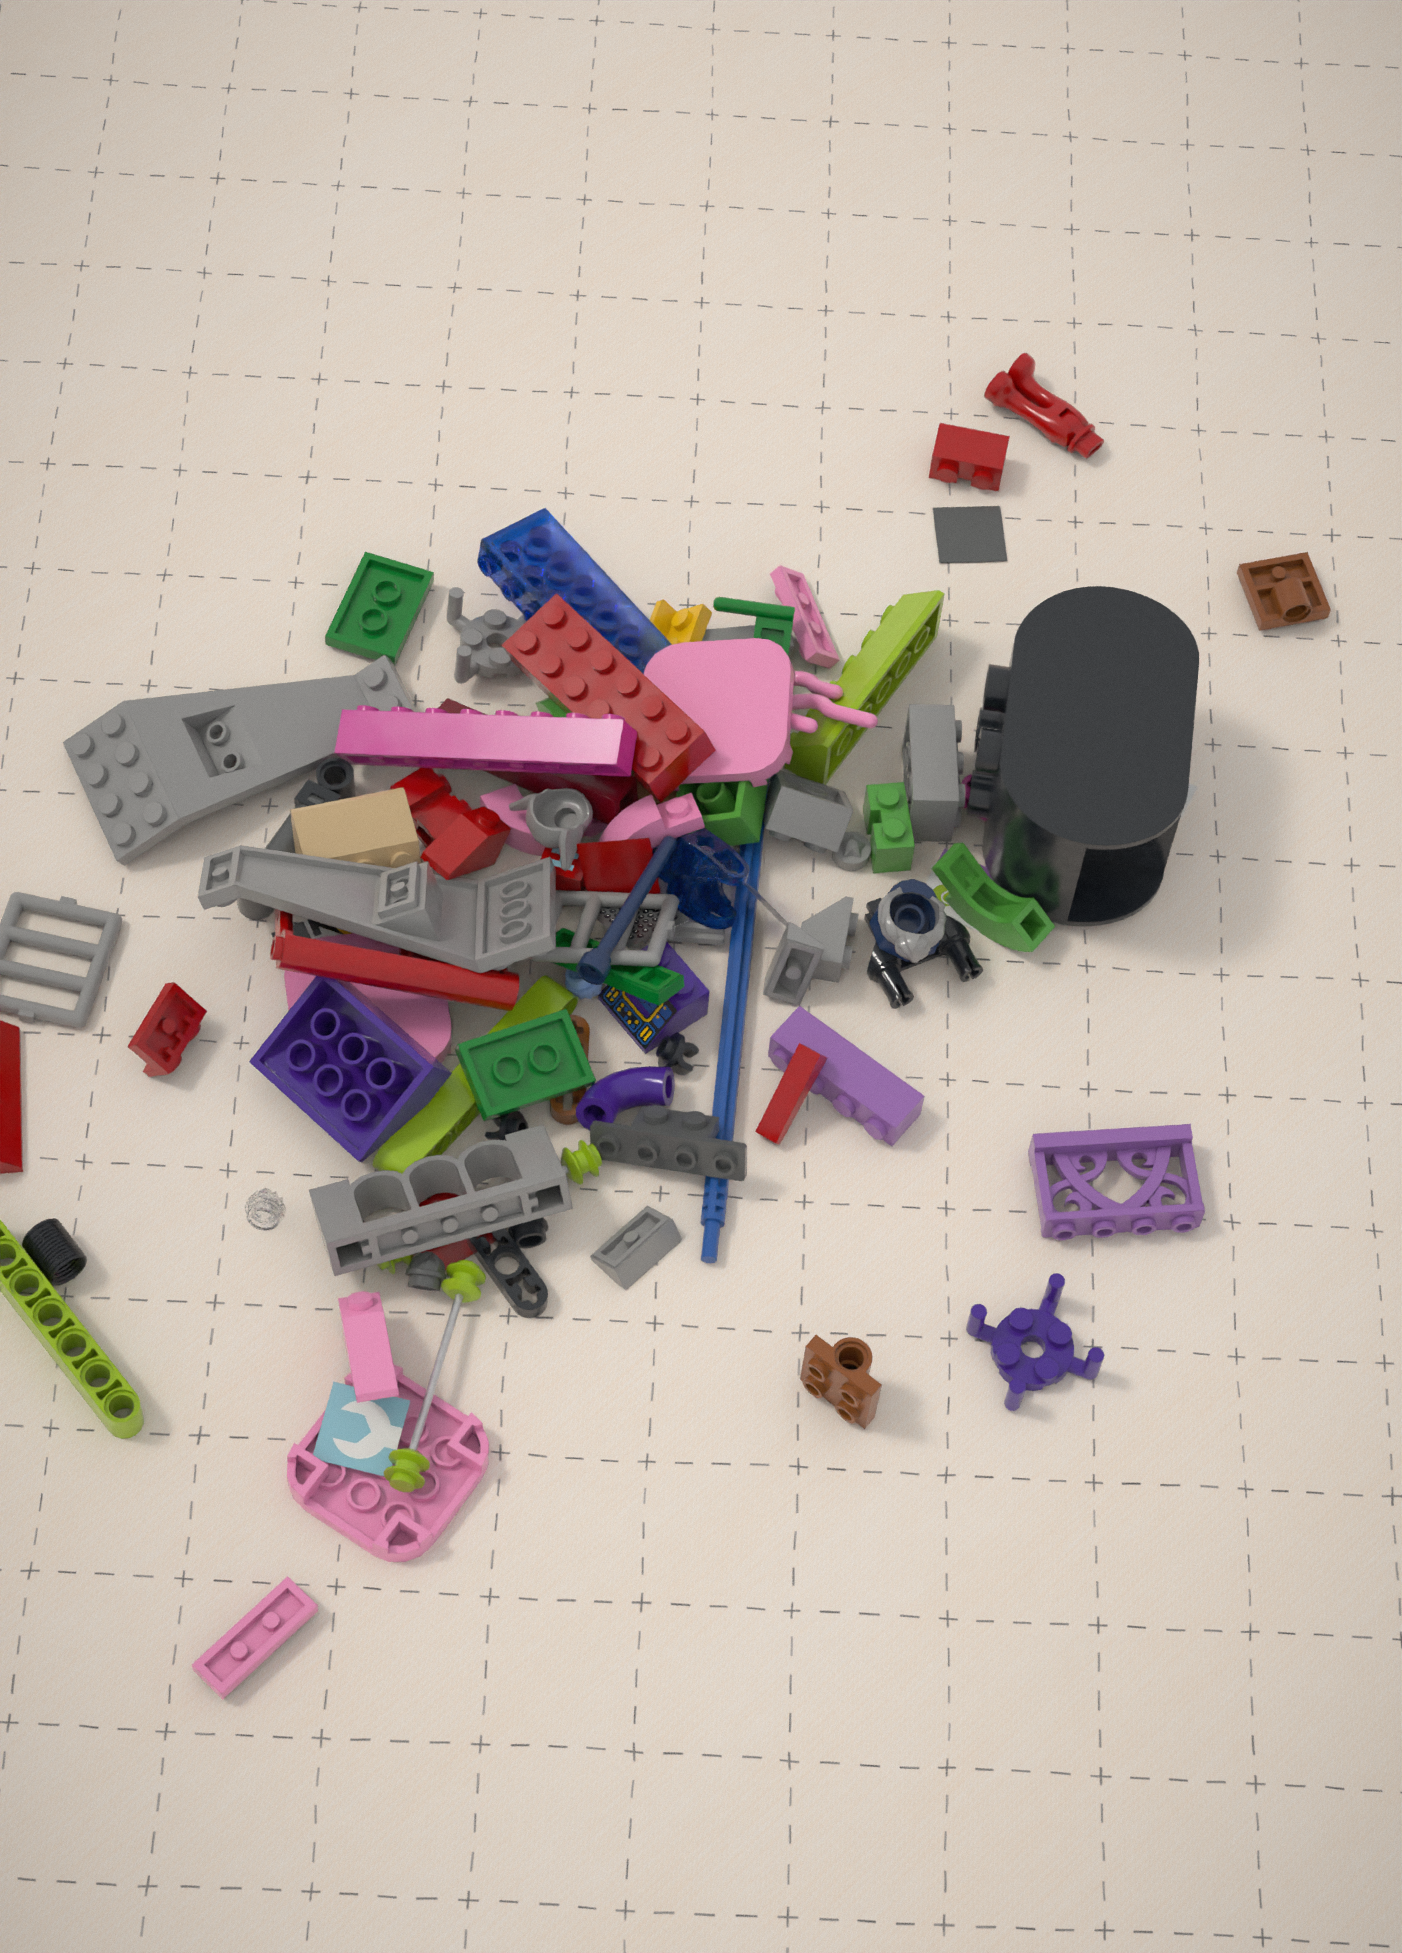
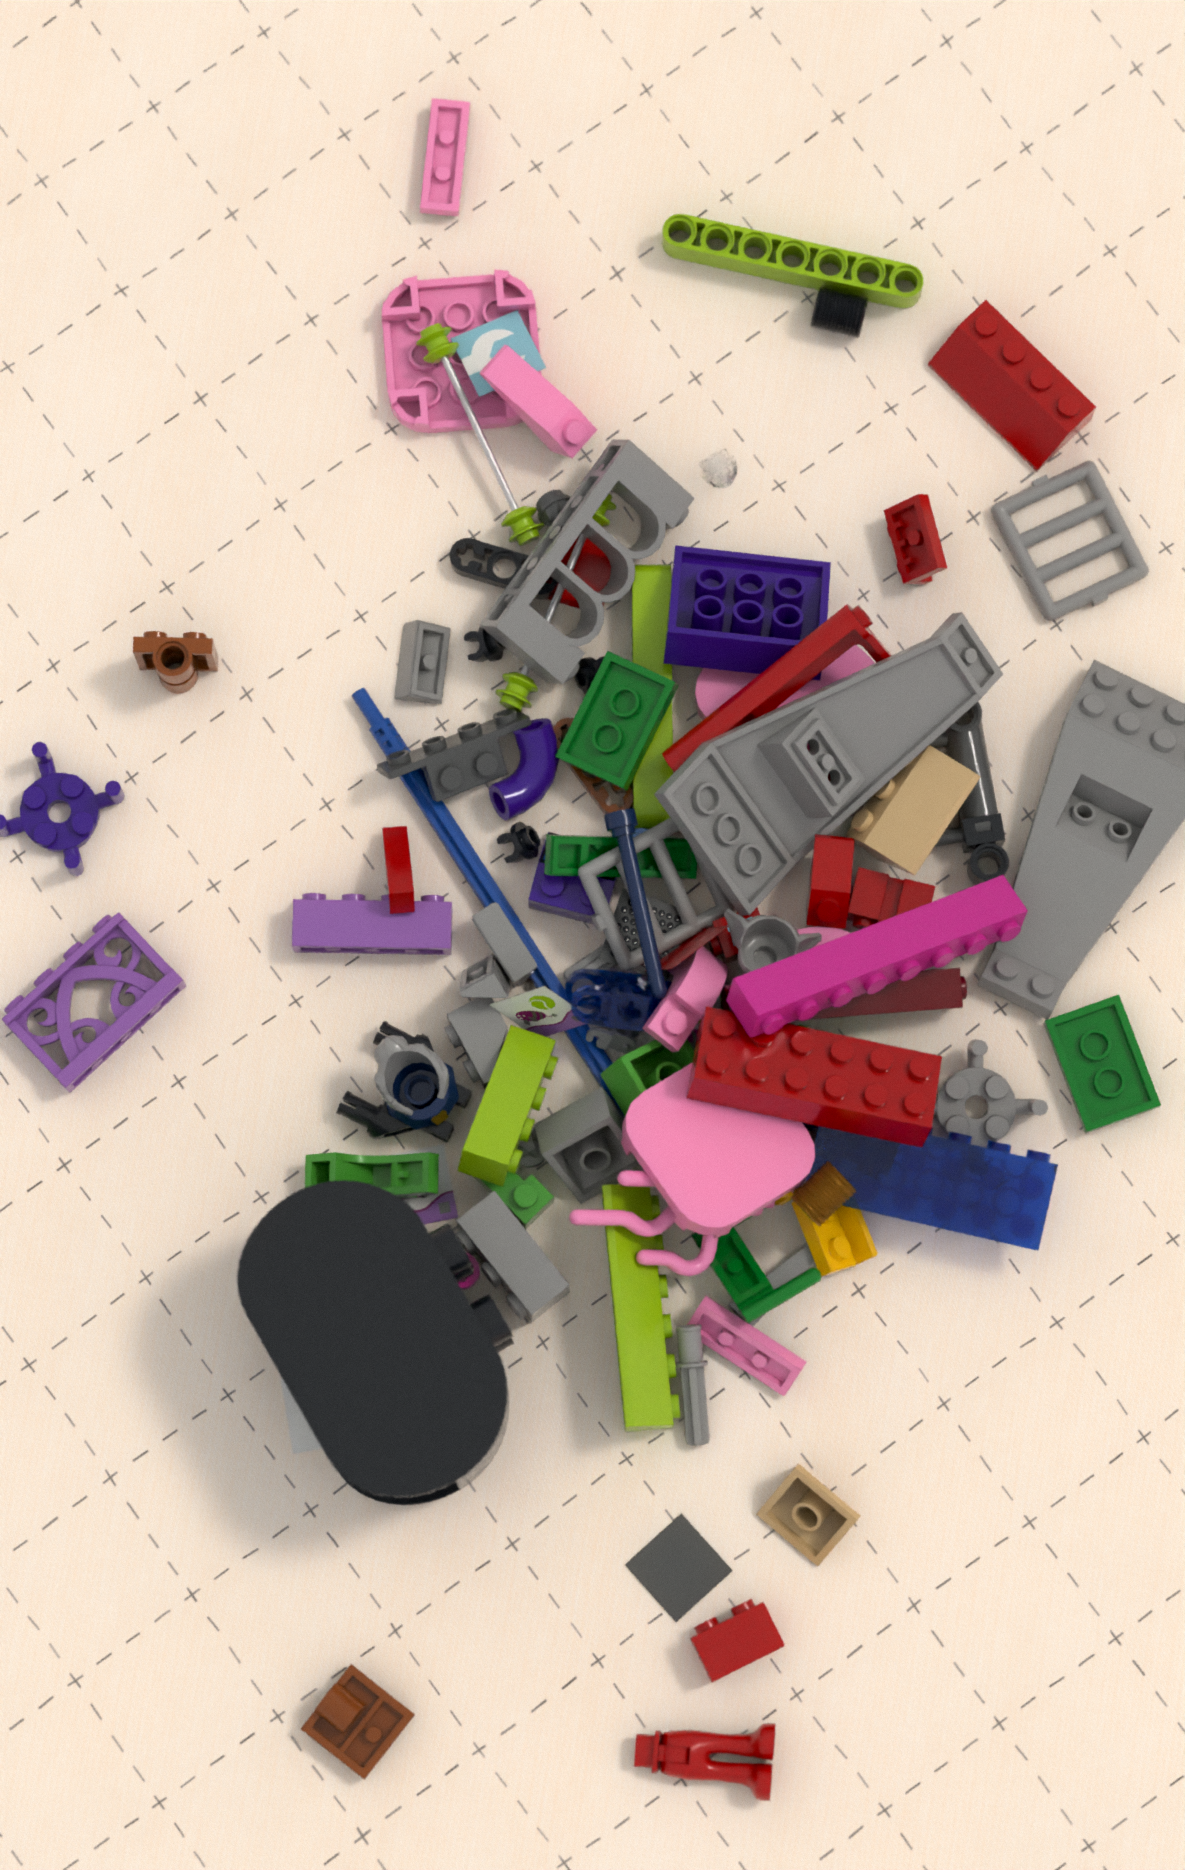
camera: 145 degrees right, 20 degrees up
(570, 1219) = (488, 646): none -> black plate
(666, 629) = (823, 1193): none -> pearl gold piece
(752, 986) = (505, 943): none -> light grey slope
(848, 494) = (808, 1515): none -> tan slope
(852, 859) = (507, 1105): none -> lime brick
(856, 627) = (693, 1384): none -> light grey axle

